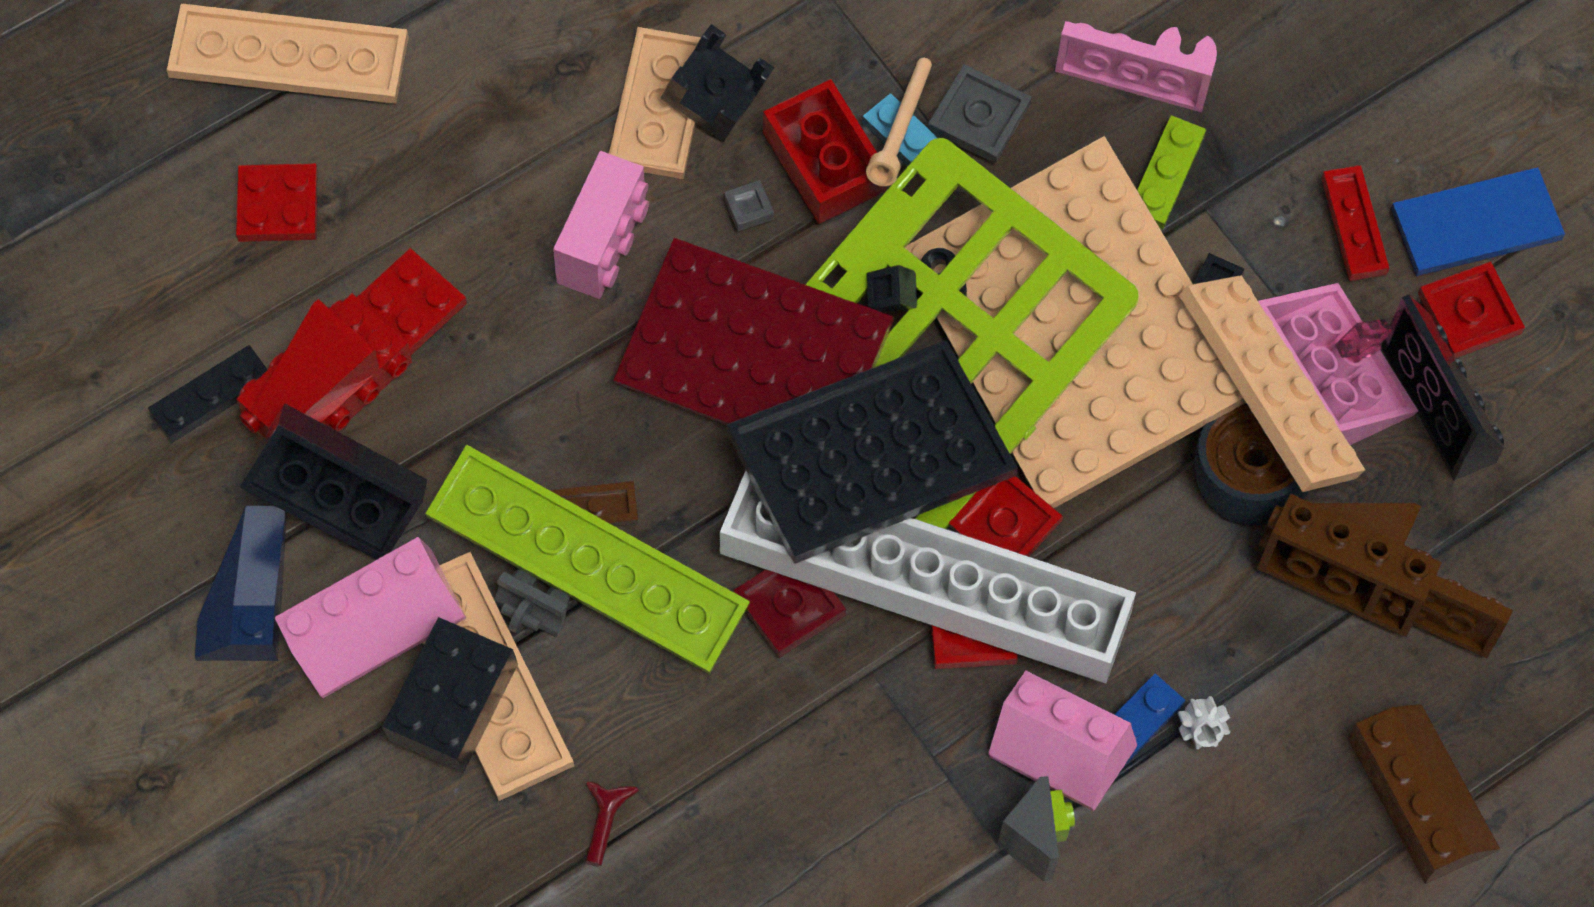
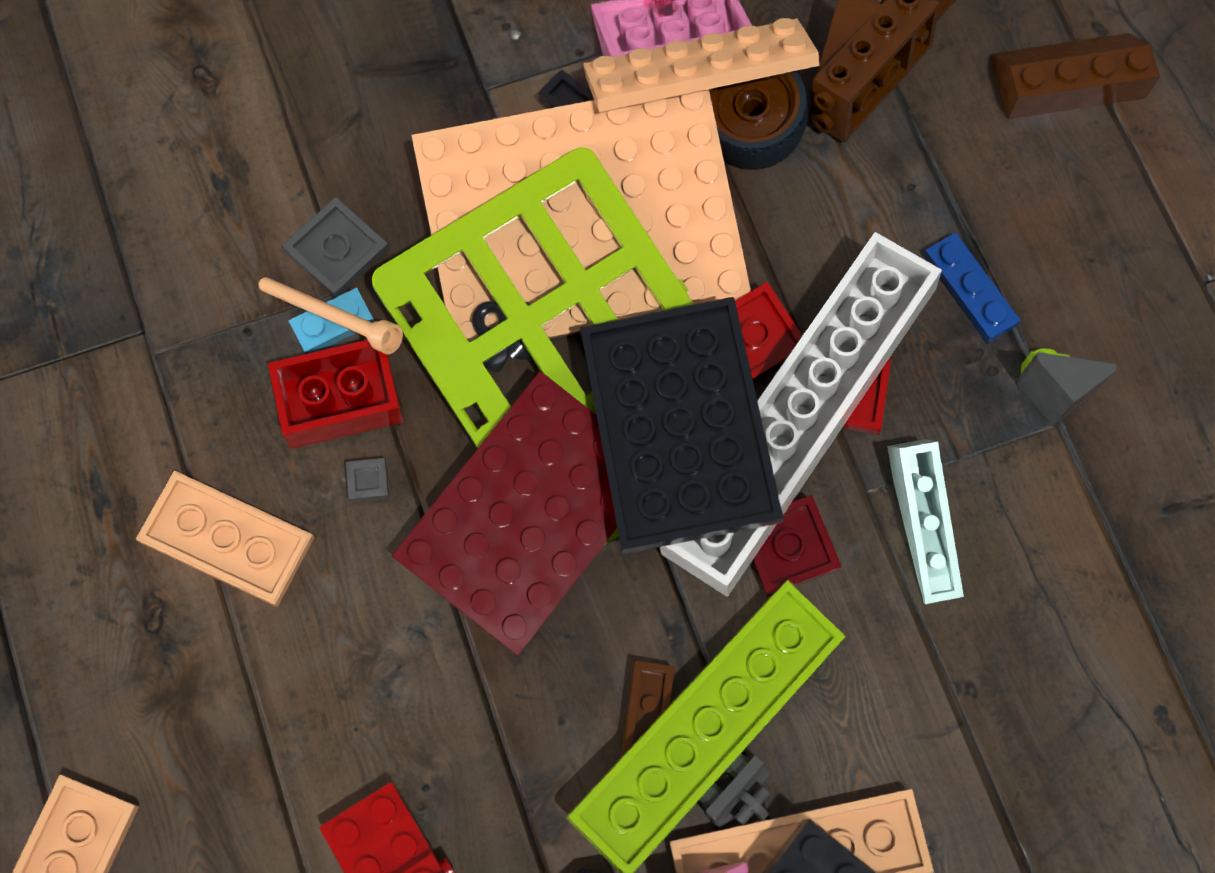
camera: 75 degrees left, 5 degrees up
(601, 225) = (354, 623): bright pink brick -> none
(608, 802) = (953, 765): dark red piece -> none
(715, 86) = (231, 477): black panel -> none
(854, 725) = (926, 518): none -> light aqua slope
(892, 289) = (510, 365): black slope -> none
(1063, 738) = (984, 340): bright pink slope -> none
(1138, 67) = (341, 93): bright pink hinge -> none
(1170, 167) = (433, 100): lime plate -> none
(1204, 722) = (983, 221): white gear -> none

